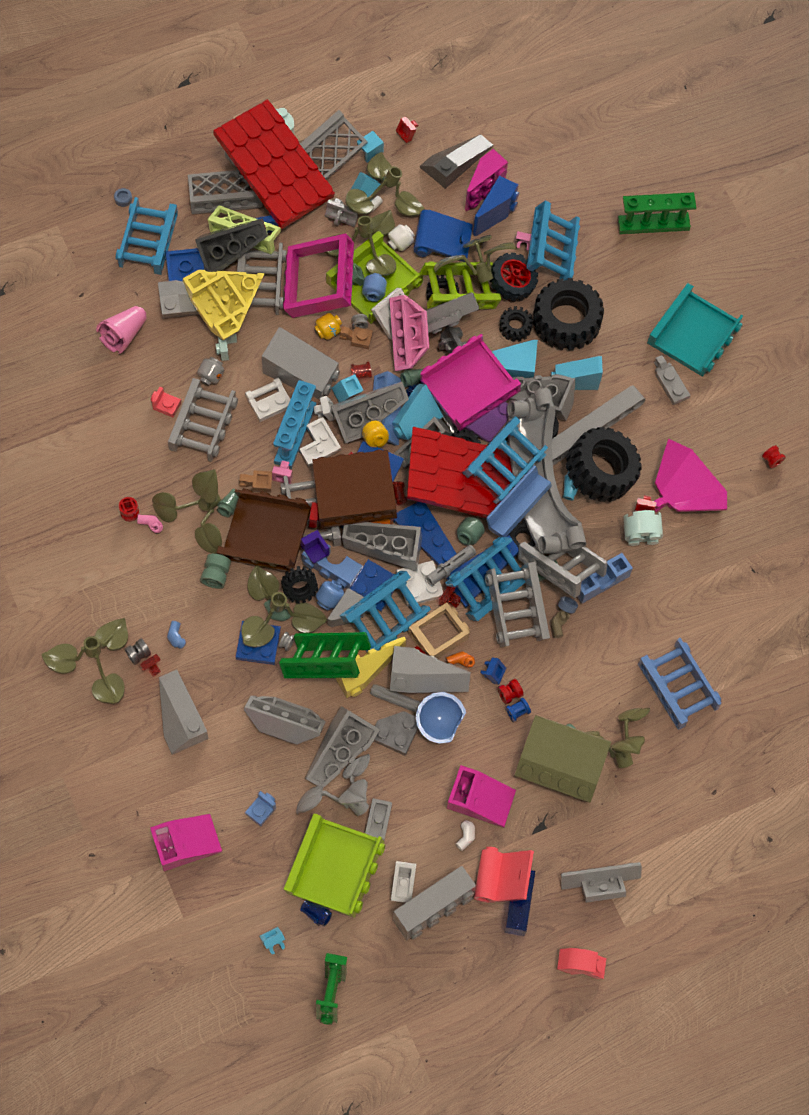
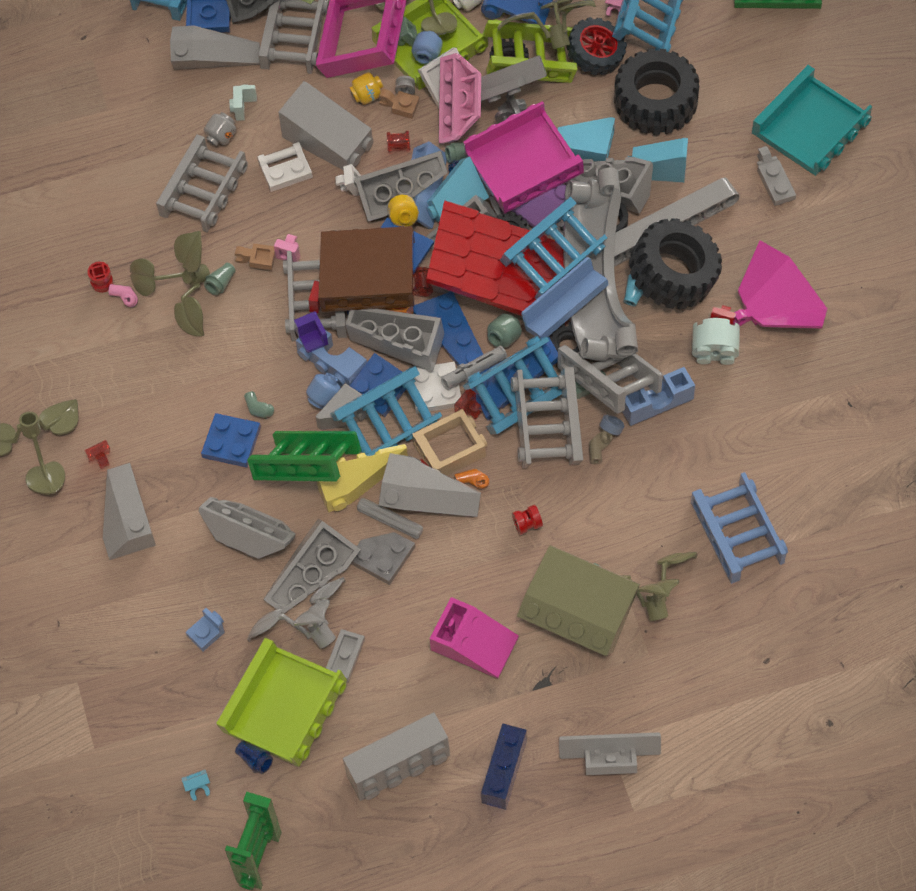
camera: 15 degrees right, 5 degrees down
(121, 328) = (121, 75): bright pink cone -> none
(137, 651) = (85, 437): flat silver wheel -> none
(165, 403) = (161, 161): coral bracket -> none
(174, 637) = (131, 423): medium blue arm -> none
(185, 840) = (107, 658): dark pink slope -> none
(216, 569) = (191, 352): sand green wheel -> none
(222, 298) = (242, 45): light yellow wedge -> none
(256, 630) = (245, 374): olive plant -> none
(266, 530) = (257, 311): reddish brown panel -> none
(286, 641) = (264, 440): light grey bush -> none
(294, 423) = (308, 192): dark azure fence -> none
(297, 576) = (287, 387): black tyre -> none
(324, 442) = (342, 215): white plate -> none
(347, 388) = (378, 157): medium azure panel -> none
(403, 881) = (364, 726): white slope -> none
(439, 717) = (434, 539): medium blue cylinder -> none
(468, 835) = (453, 683): white arm -> none
(494, 671) = (511, 494): blue tile -> none
(503, 875) = (485, 732): coral door -> none
(514, 333) = (592, 110): black tyre -> none
(518, 709) = (534, 541): blue bush -> none
(581, 962) = (571, 843): coral brick -> none
(773, 456) = (890, 272): red wheel -> none

